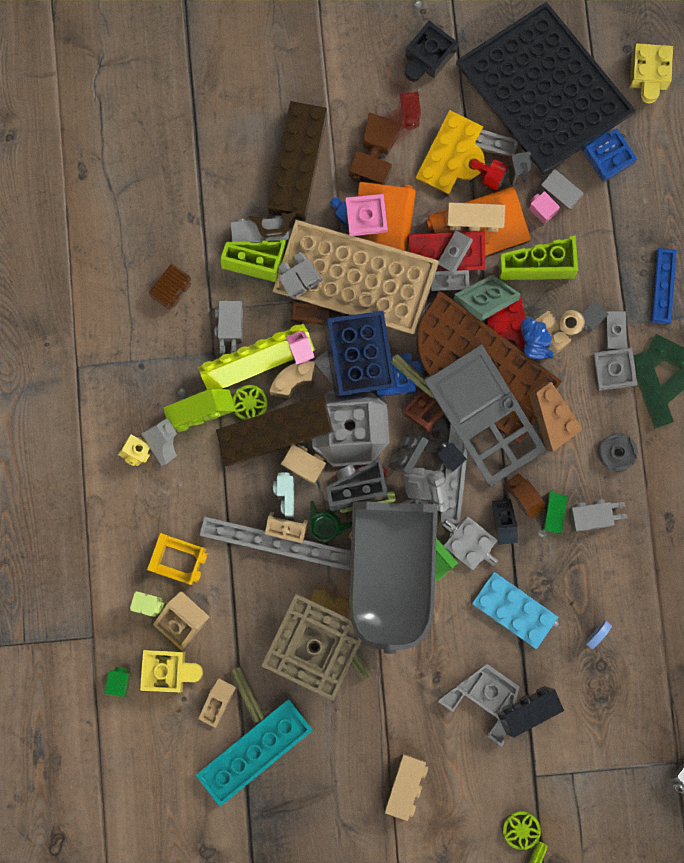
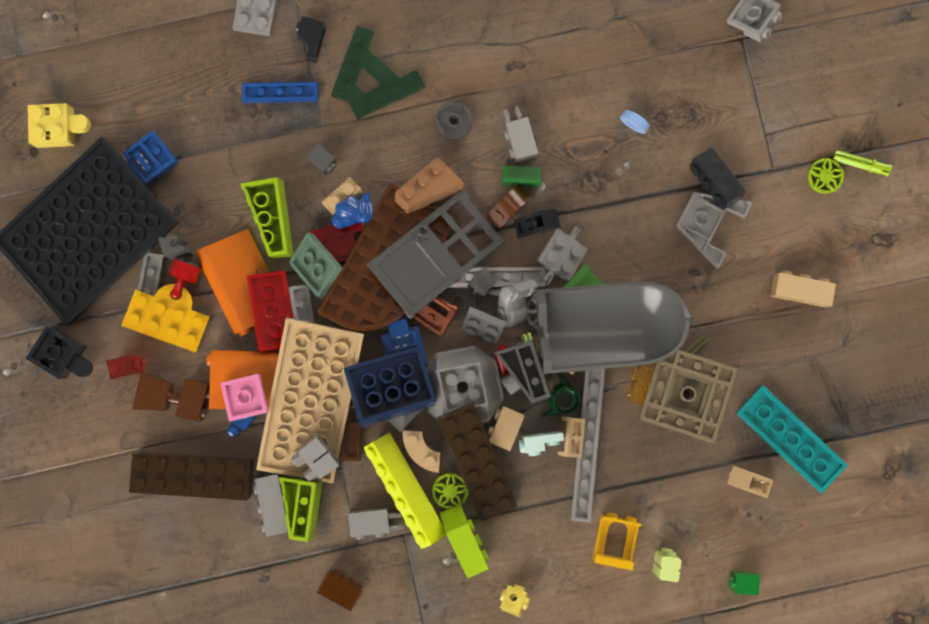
camera: 105 degrees left, 5 degrees up
(160, 440) = (501, 576): light grey arch -> none
(167, 671) = (728, 536): light yellow brick -> none
(181, 620) = (675, 528): tan slope -> none
(247, 695) = (737, 453): olive axle -> none
(273, 232) = (272, 491): dark brown helmet -> none
(300, 347) = (390, 447): bright pink brick -> none
(411, 373) = (402, 333): olive axle -> none
(455, 251) = (272, 302): light grey plate -> none
(475, 216) = (232, 286): tan brick -> none
(515, 610) = (620, 204): medium azure plate -> none
(543, 207) = (213, 219): bright pink brick -> none
(562, 189) = (192, 202): light grey hinge -> none
(571, 322) = (331, 178): tan head -> none
(615, 369) = (371, 131): light grey tile -> none
(616, 330) = (331, 134): light grey plate -> none

